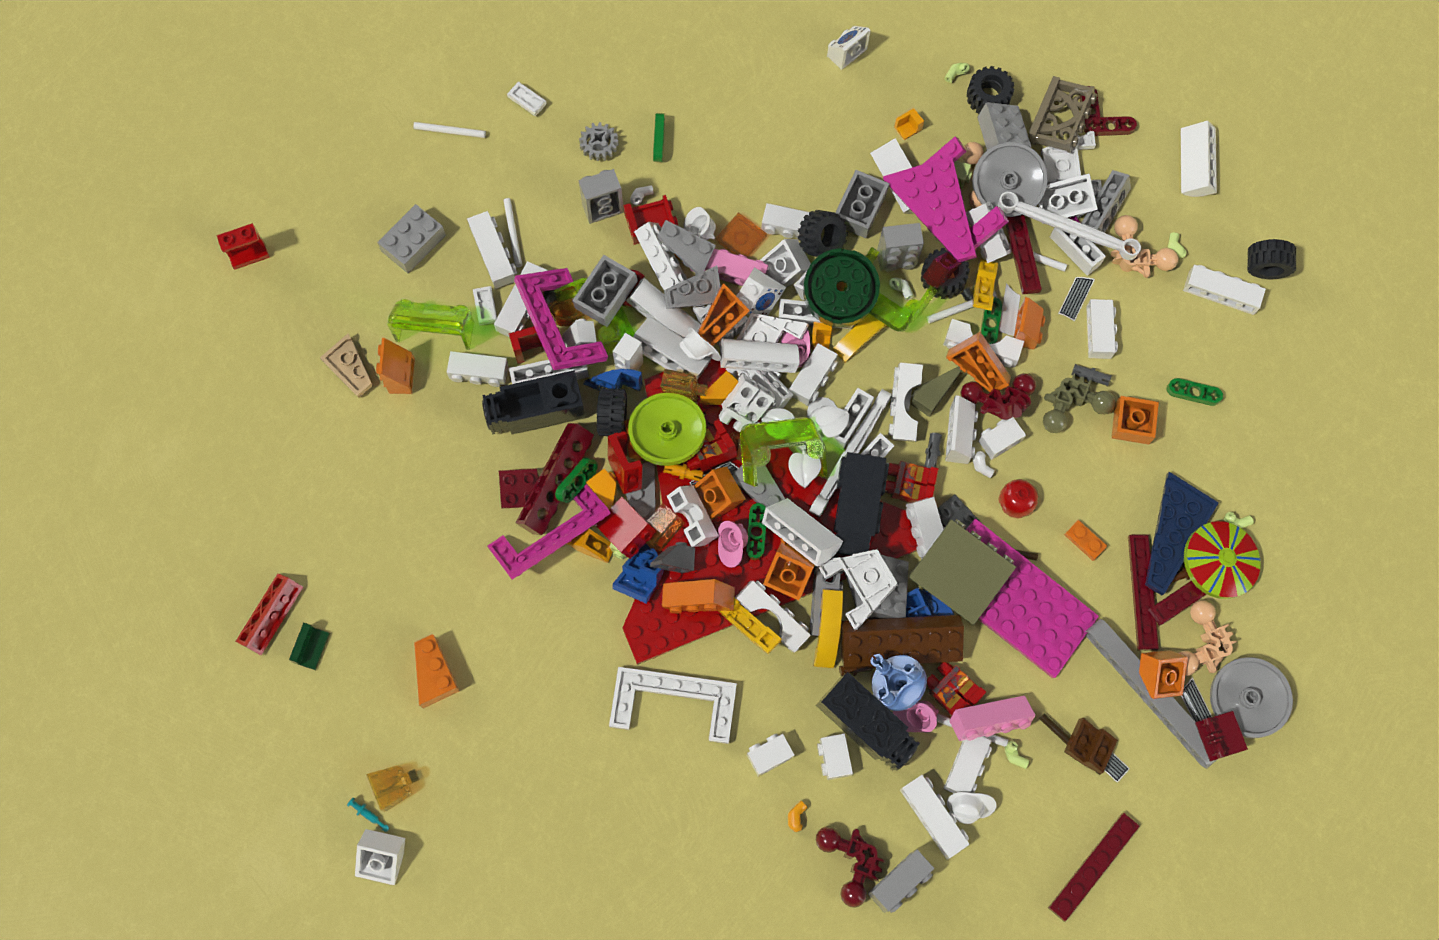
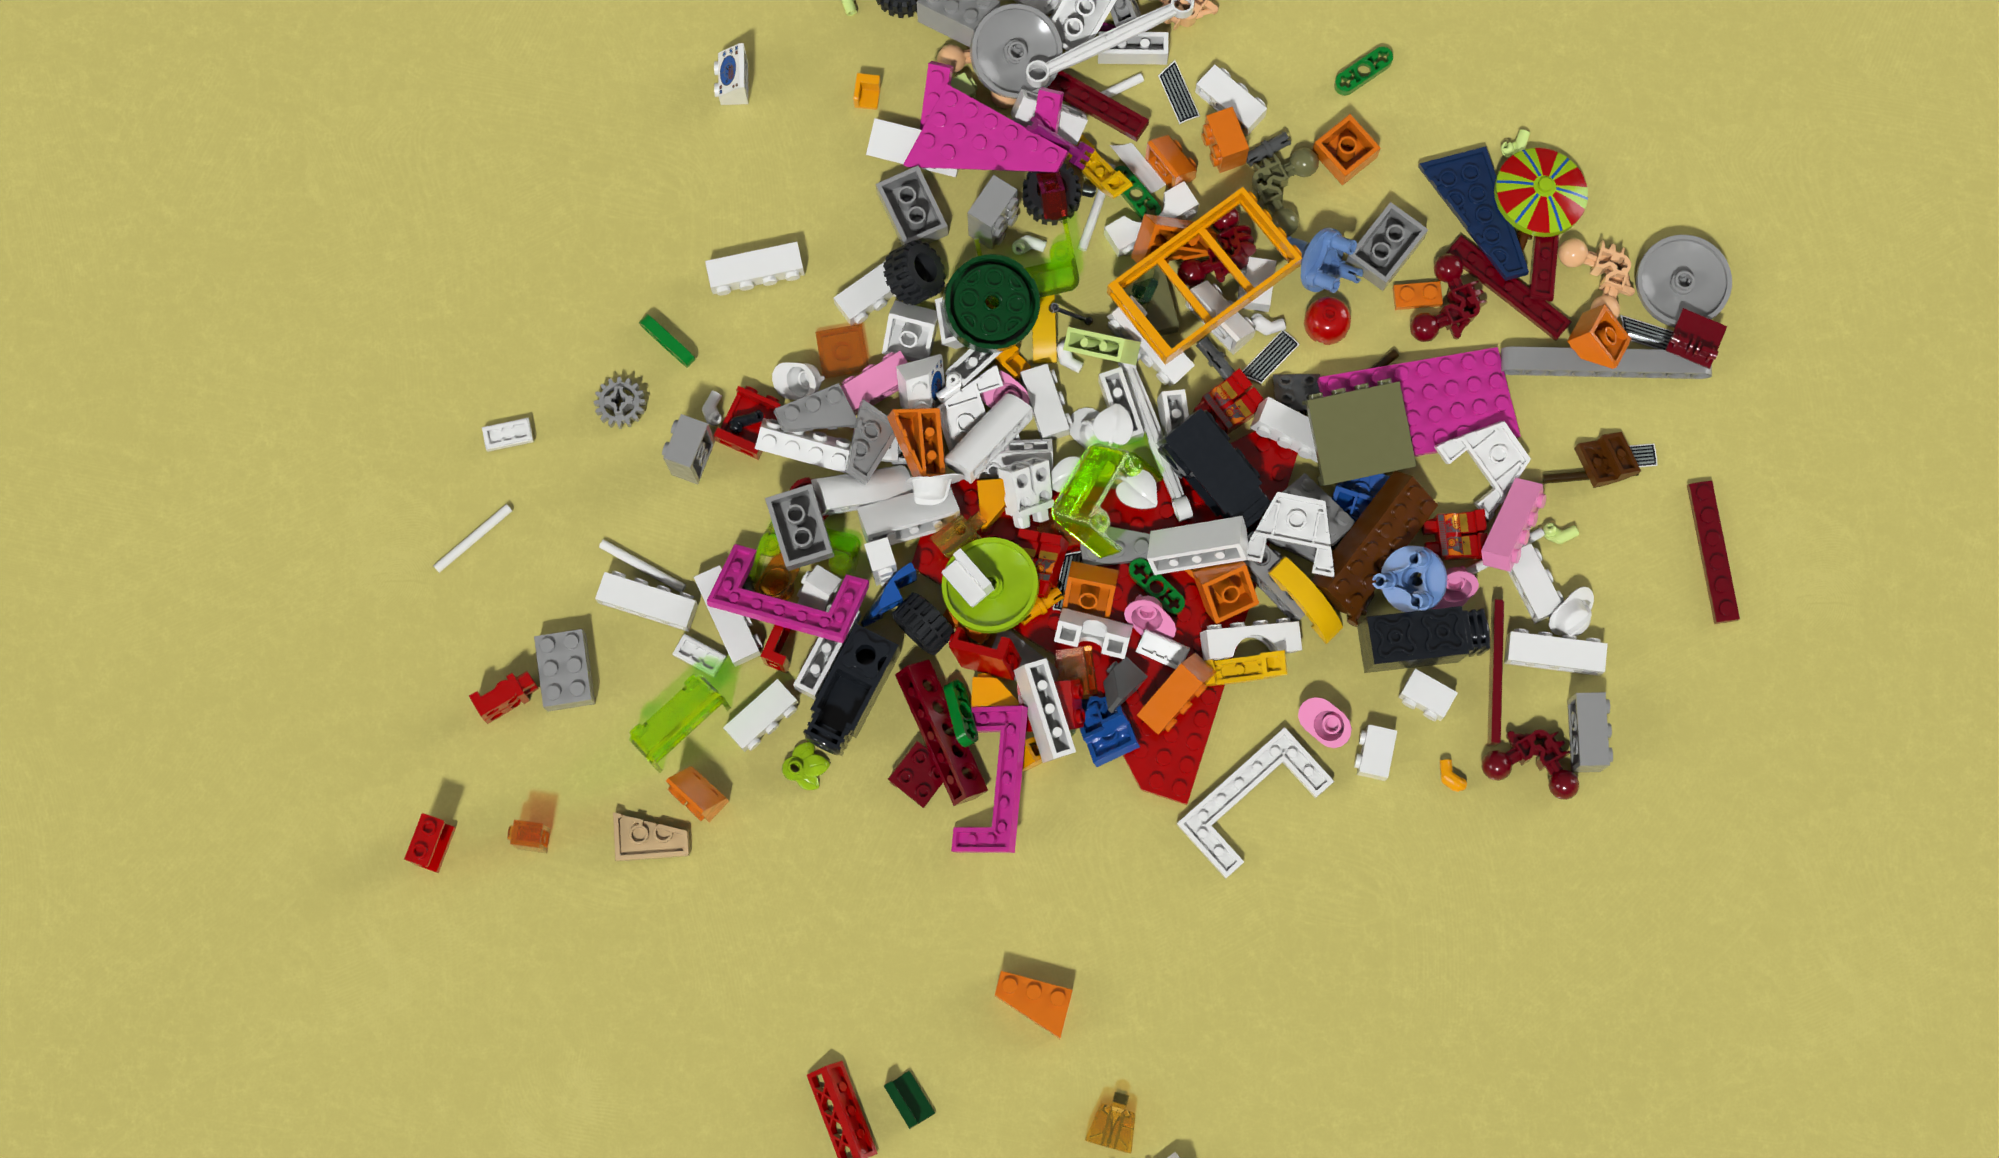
camera: 45 degrees left, 5 degrees up
(293, 297) = (529, 836): none -> clear orange brick
(365, 217) = (504, 697): none -> red hips
(470, 421) = (808, 766): none -> lime plate
(616, 524) = (1044, 710): none -> white brick
(645, 214) = (738, 422): none -> black arm
(658, 411) = (967, 579): none -> white panel
(719, 565) = (1162, 649): none -> white plate
(745, 148) = (755, 268): none -> white brick
(761, 705) = (1325, 722): none -> bright pink piece
(773, 310) = (953, 386): none -> white arm
(852, 365) = (1067, 360): none -> white arm
(875, 330) = (1055, 308): none -> black hinge
(876, 375) = (1102, 346): none -> yellowish green brick
(888, 789) = (1495, 672): none -> dark red tile
(932, 372) = (1144, 290): none -> clear green plate
(964, 359) = (1264, 222): none -> light orange window
(964, 484) = (1271, 357): none -> sticker
(982, 266) = (1076, 152): none -> magenta hinge
(1028, 669) = (1497, 457): none -> white wing
(1052, 461) = (1324, 260): none -> medium blue piece
(1071, 343) = (1225, 140): none -> orange brick
(1097, 494) = (1387, 246): none -> light grey brick
(1118, 544) = (1426, 326): none -> dark red piece

